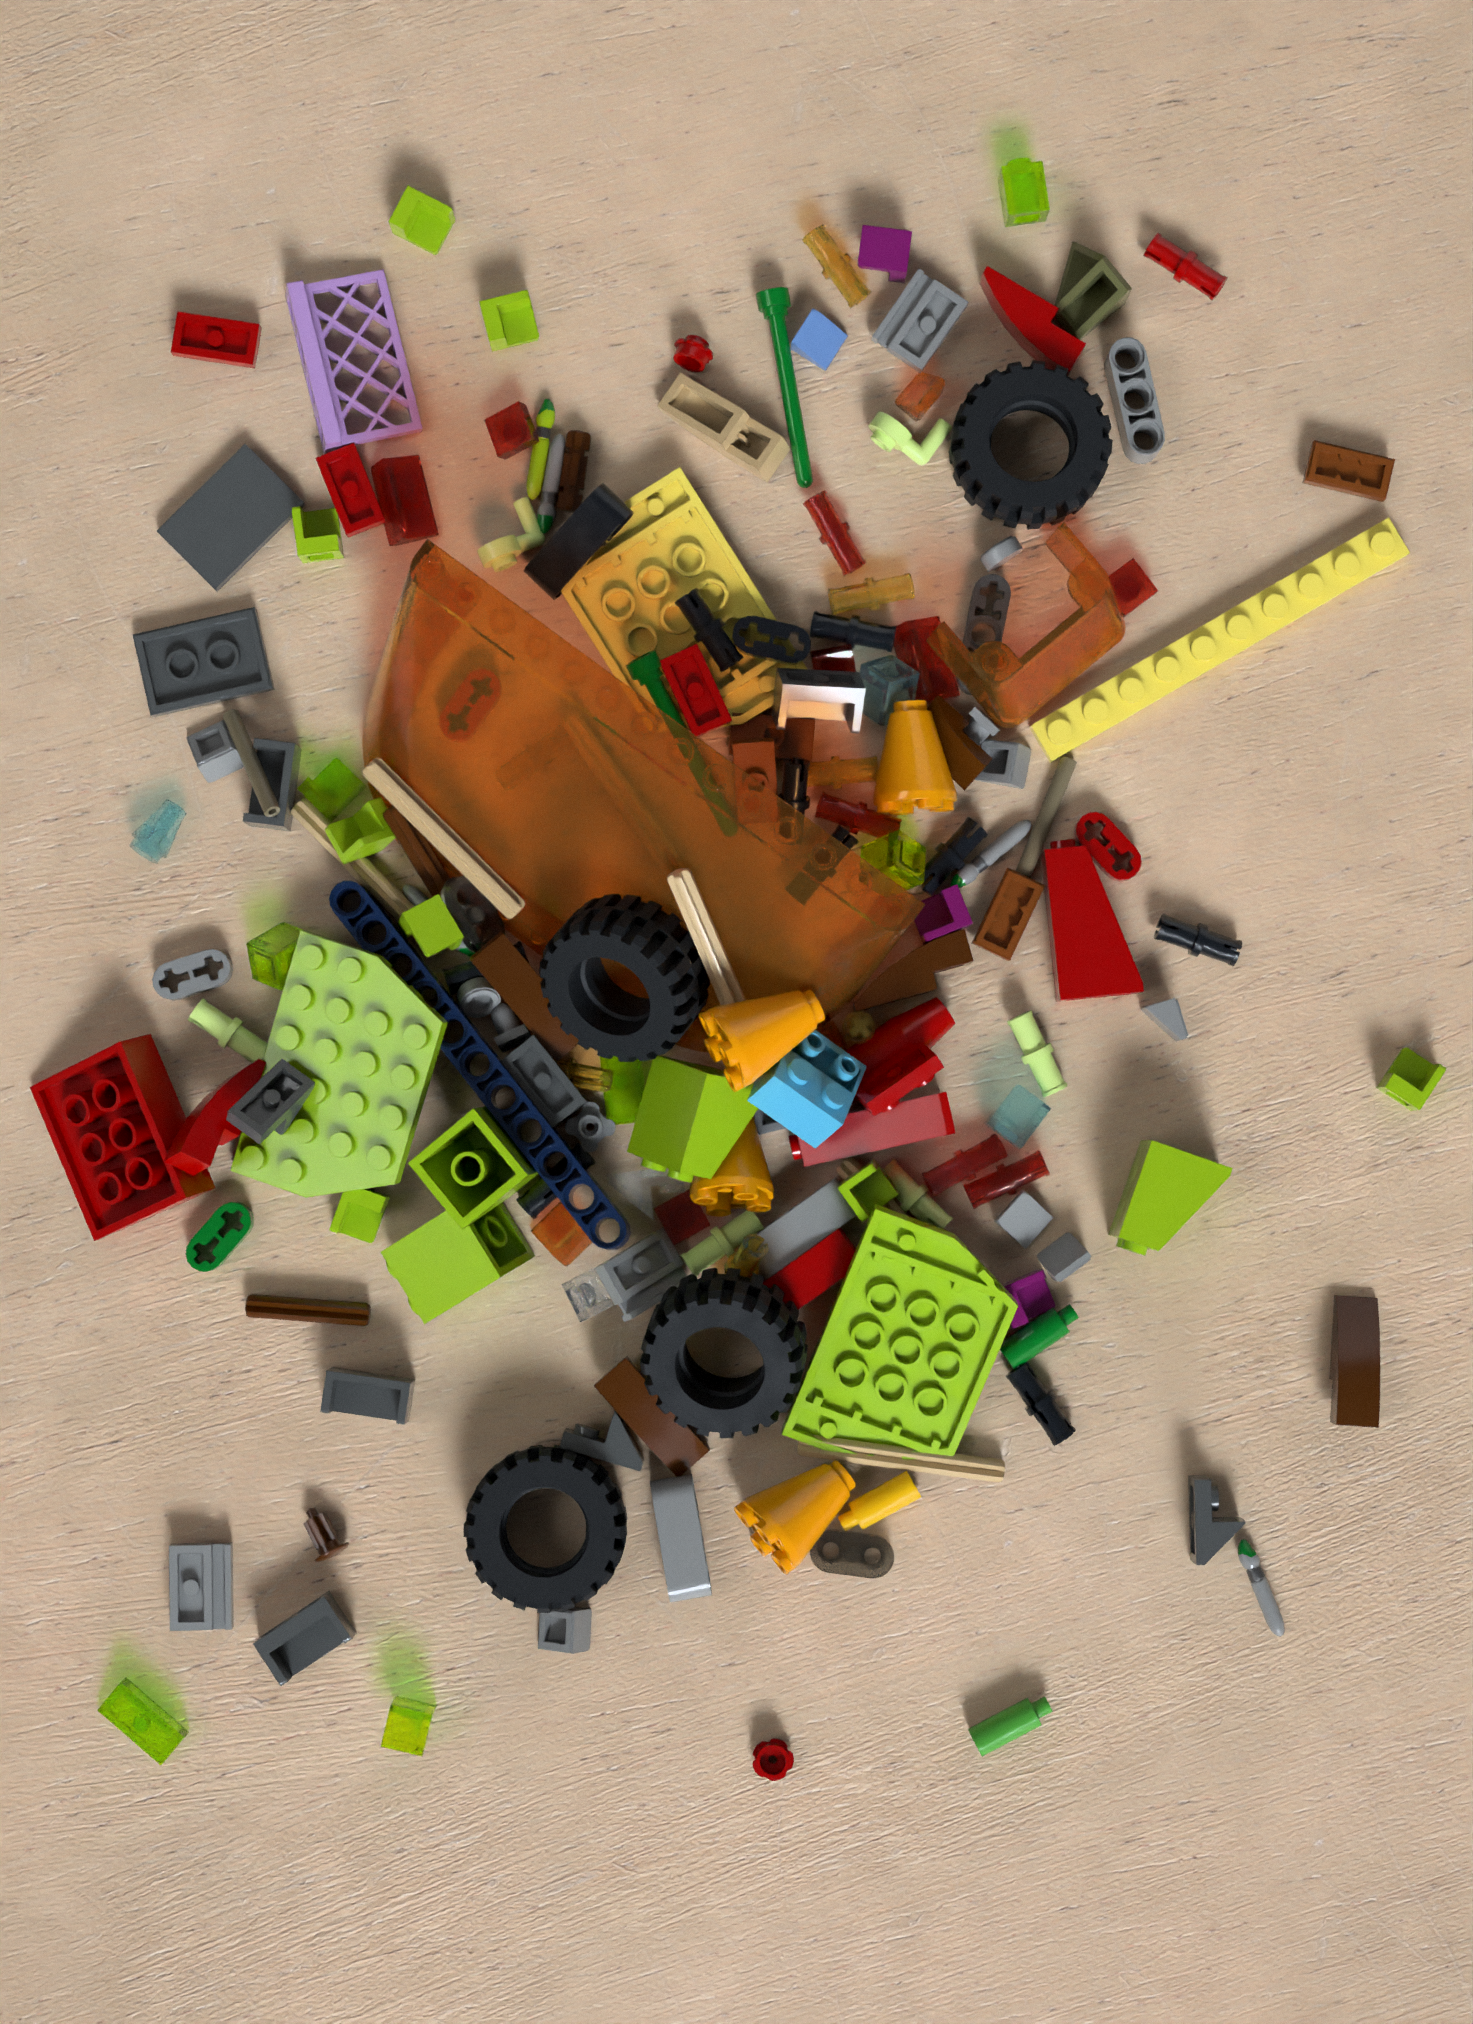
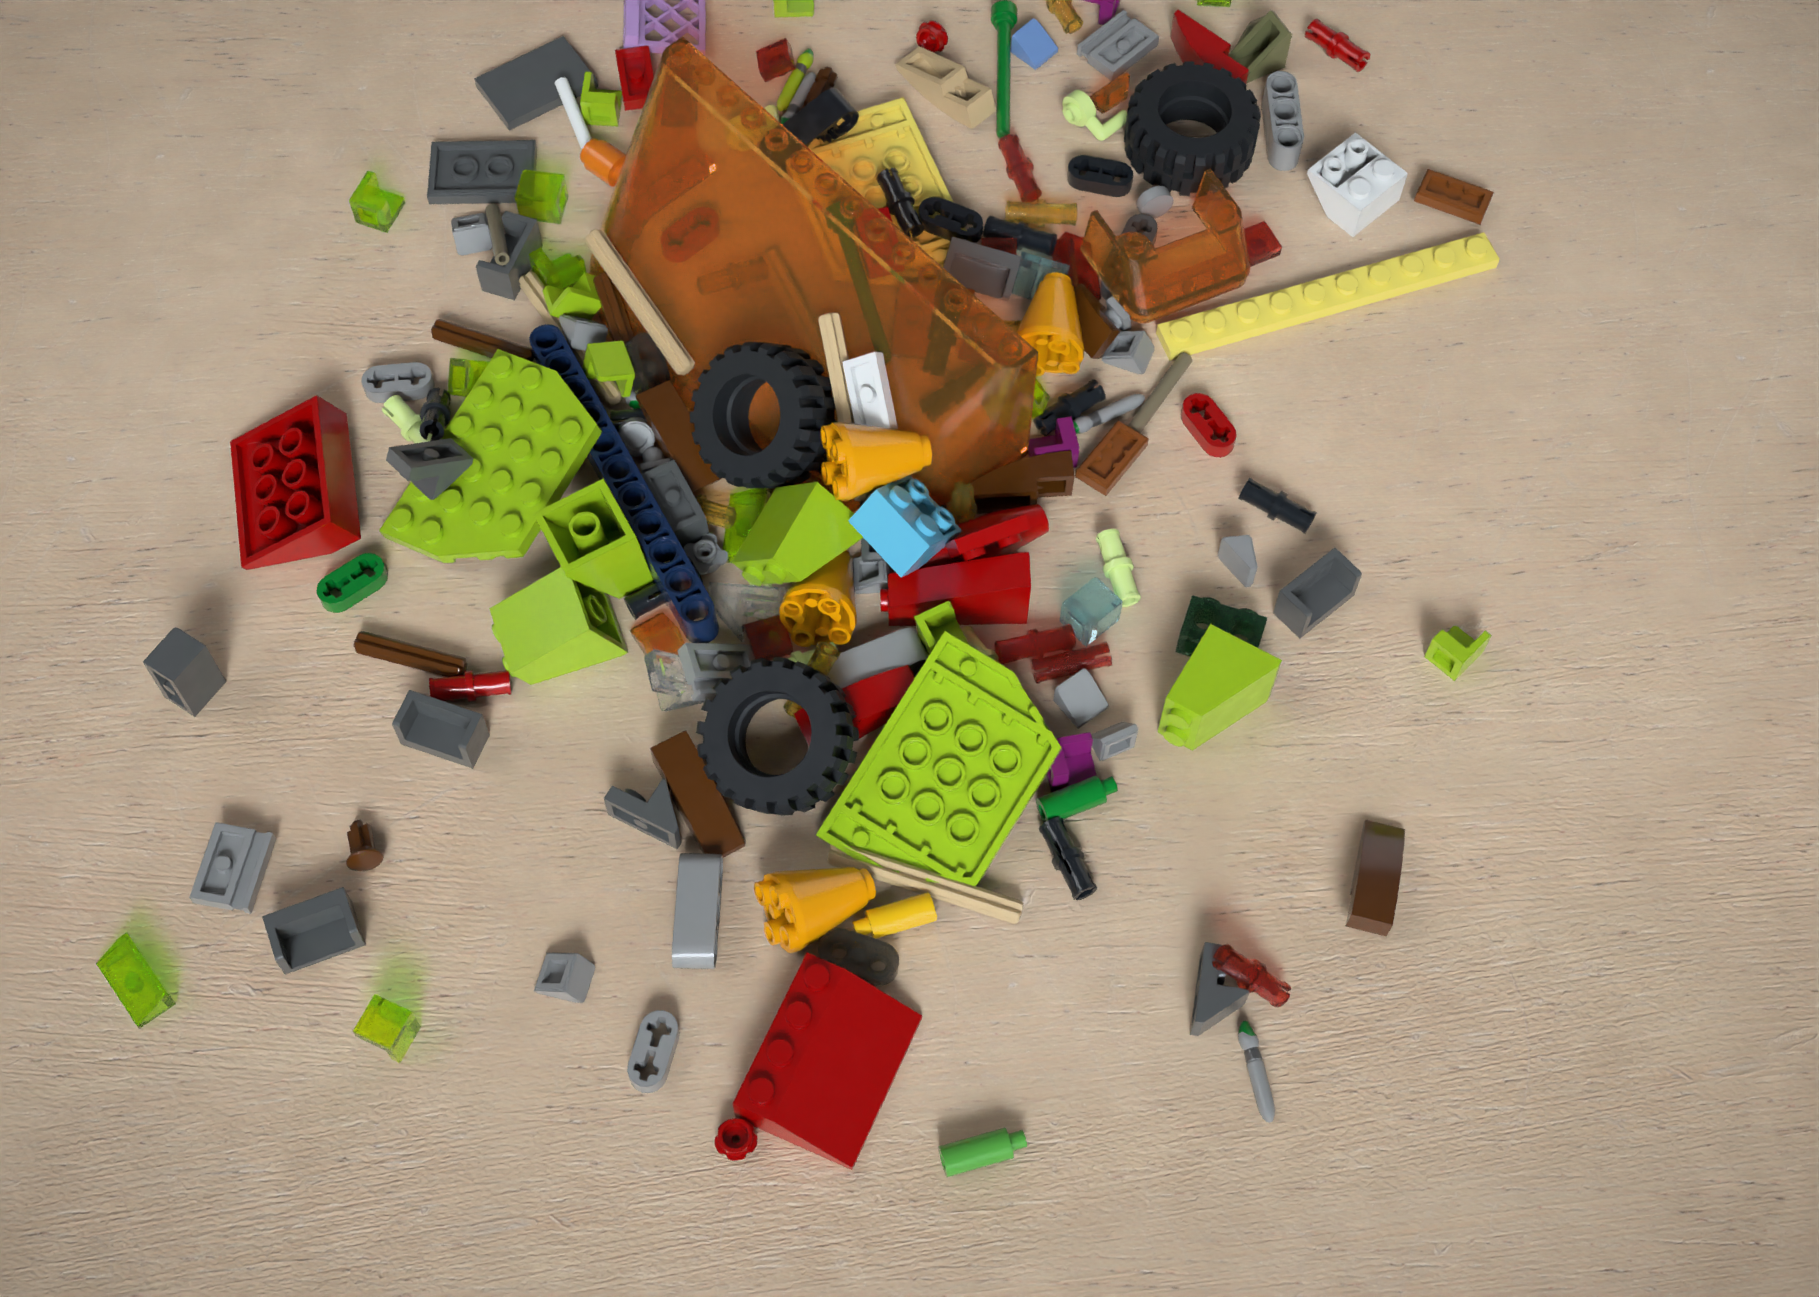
camera: 15 degrees right, 25 degrees down
(84, 1394) = (184, 671): none -> dark grey panel
(96, 738) = (375, 206): none -> clear neon green panel
(158, 832) = (401, 277): clear light blue cone -> none
(207, 1123) = (362, 474): red slope -> none
(251, 1020) = (435, 414): none -> black pin
(272, 904) = (476, 341): none -> reddish brown axle
(285, 691) = (542, 196): none -> clear neon green panel
(291, 562) = (573, 111): none -> white piece
(348, 626) = (602, 160): none -> orange brick
(360, 1214) = (481, 582): lime panel -> none
(381, 1336) = (470, 686): none -> red pin
(385, 874) = (582, 331): none -> light grey slope
(534, 1585) = (559, 821): black tyre -> none
(682, 1689) = (644, 1048): none -> light grey beam
(742, 957) = (870, 391): none -> white plate
(844, 1668) = (827, 1062): none -> red slope
(930, 511) = (1100, 176): none -> black beam
(1084, 934) = (1178, 485): red slope -> none
(1158, 1124) = (1225, 617): none -> clear green brick
(1232, 482) = (1356, 184): none -> white slope
(1244, 1502) = (1251, 975): none -> clear red pin
(1254, 1045) = (1317, 592): none -> dark grey panel

